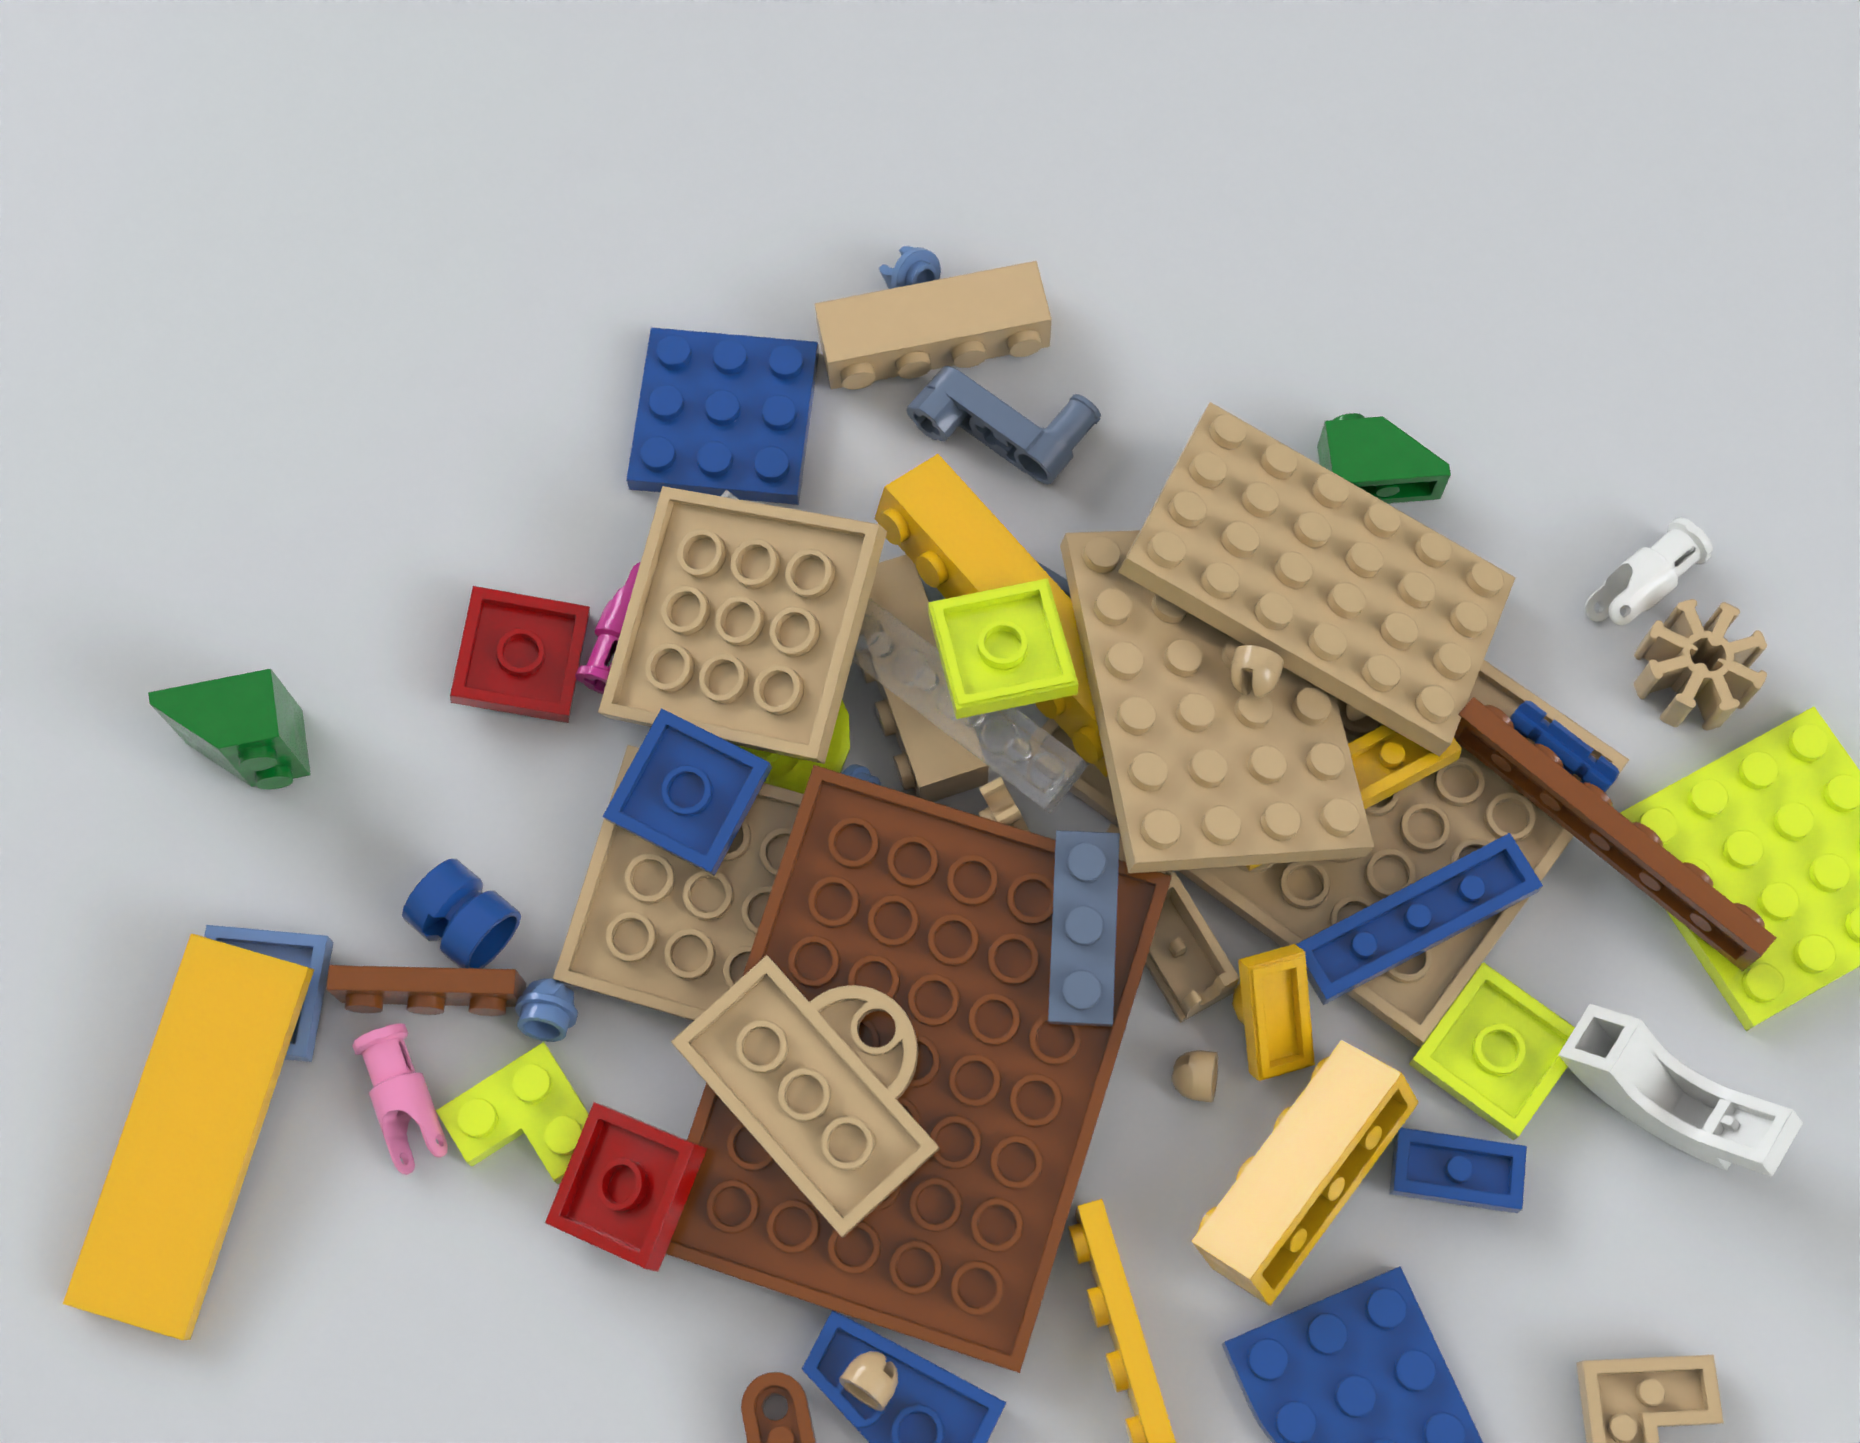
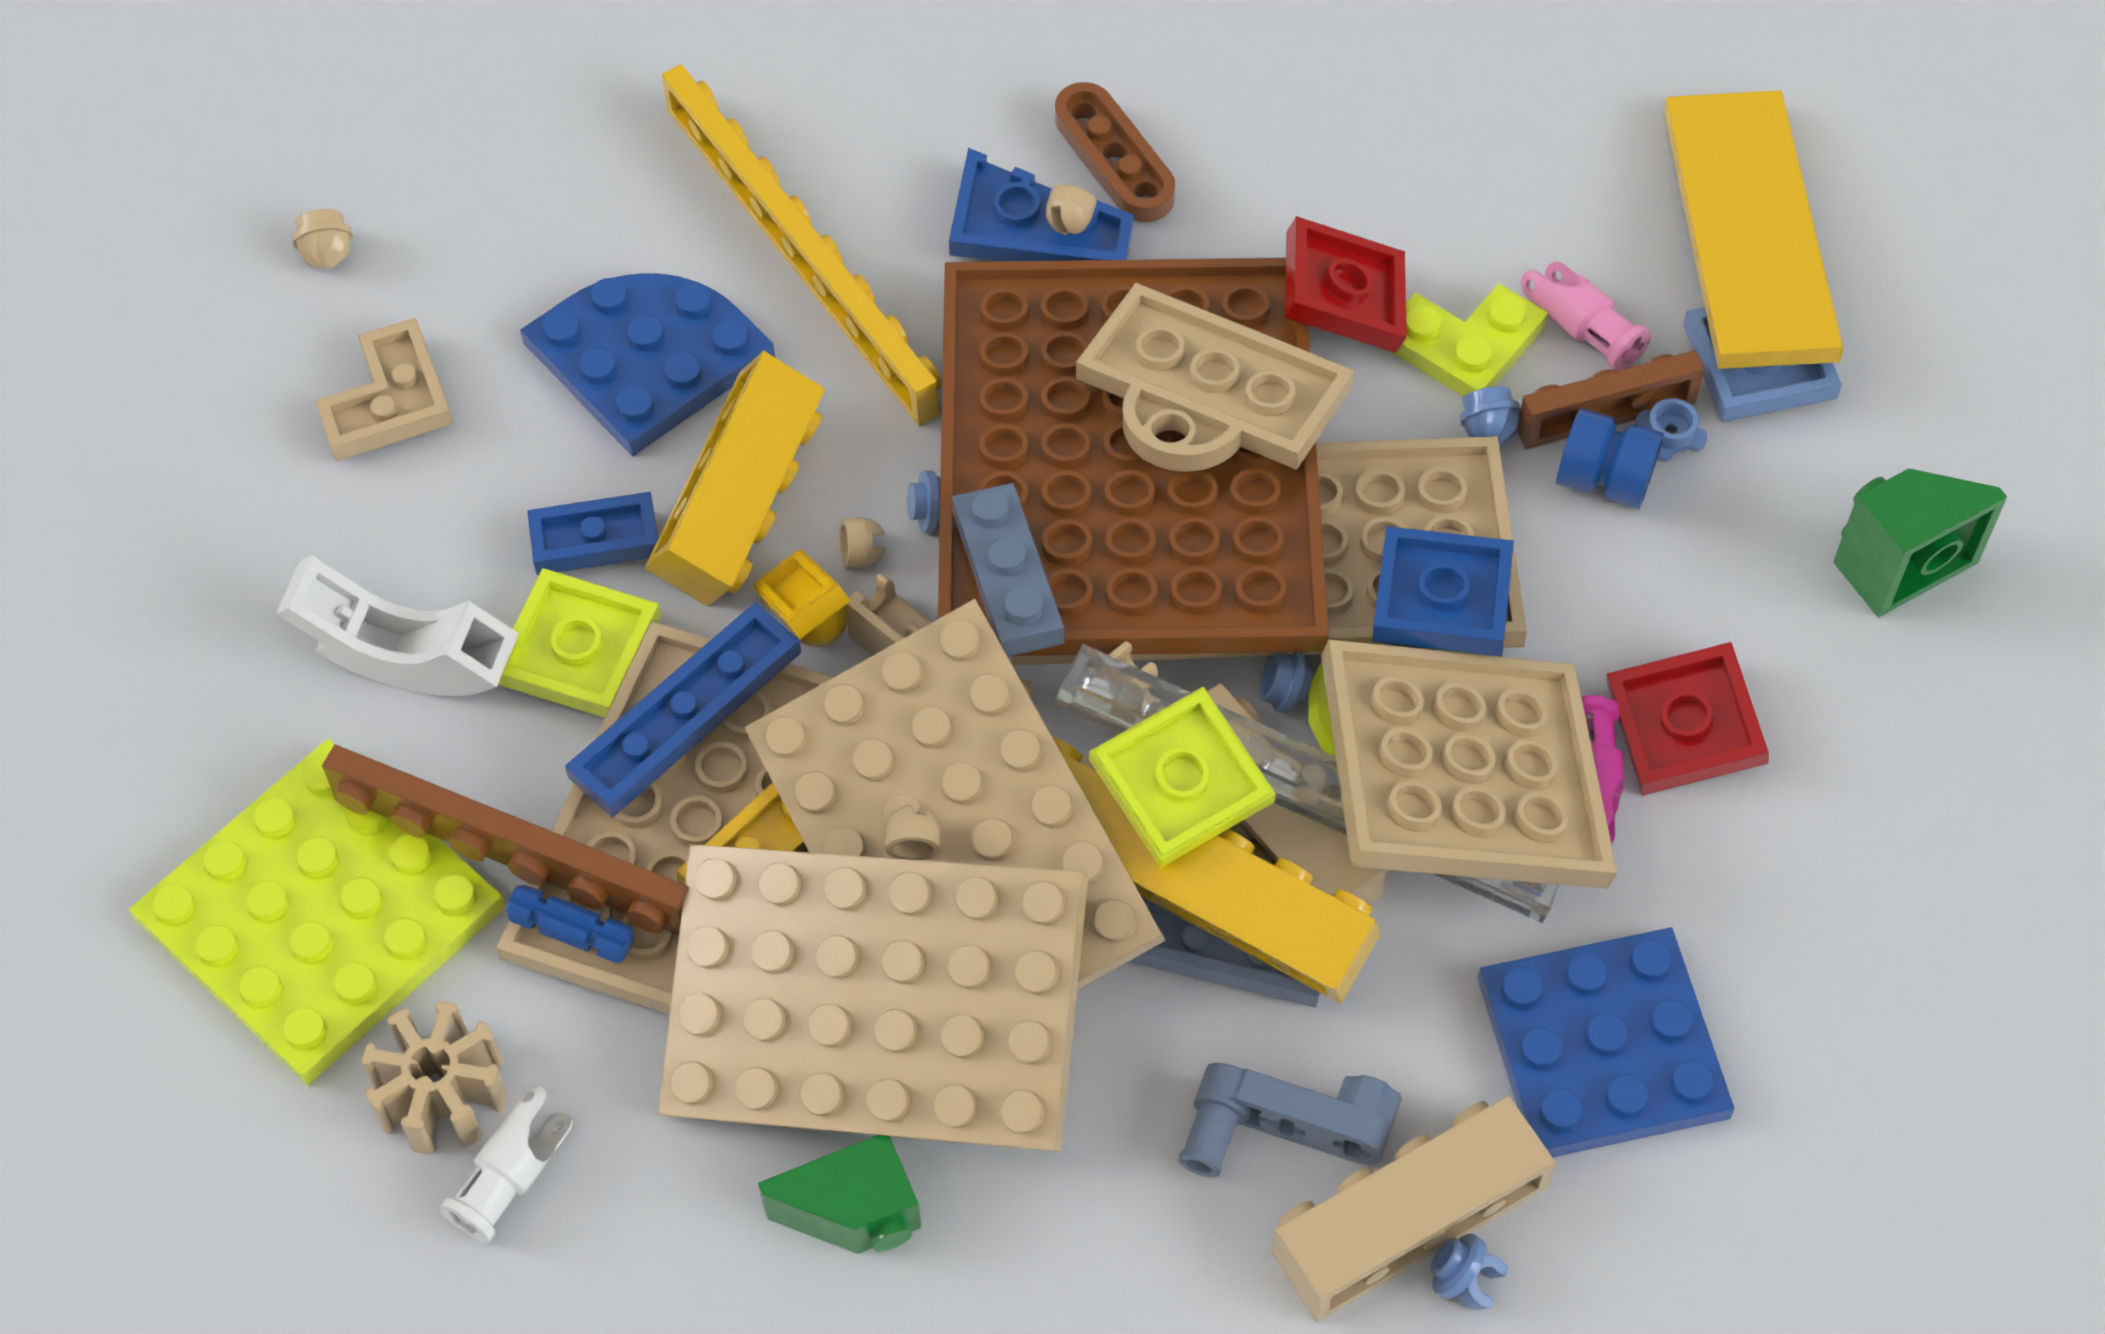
camera: 160 degrees right, 10 degrees down
(373, 931) = (1674, 415): none -> medium blue plate
(1122, 1096) = (924, 501): none -> medium blue plate

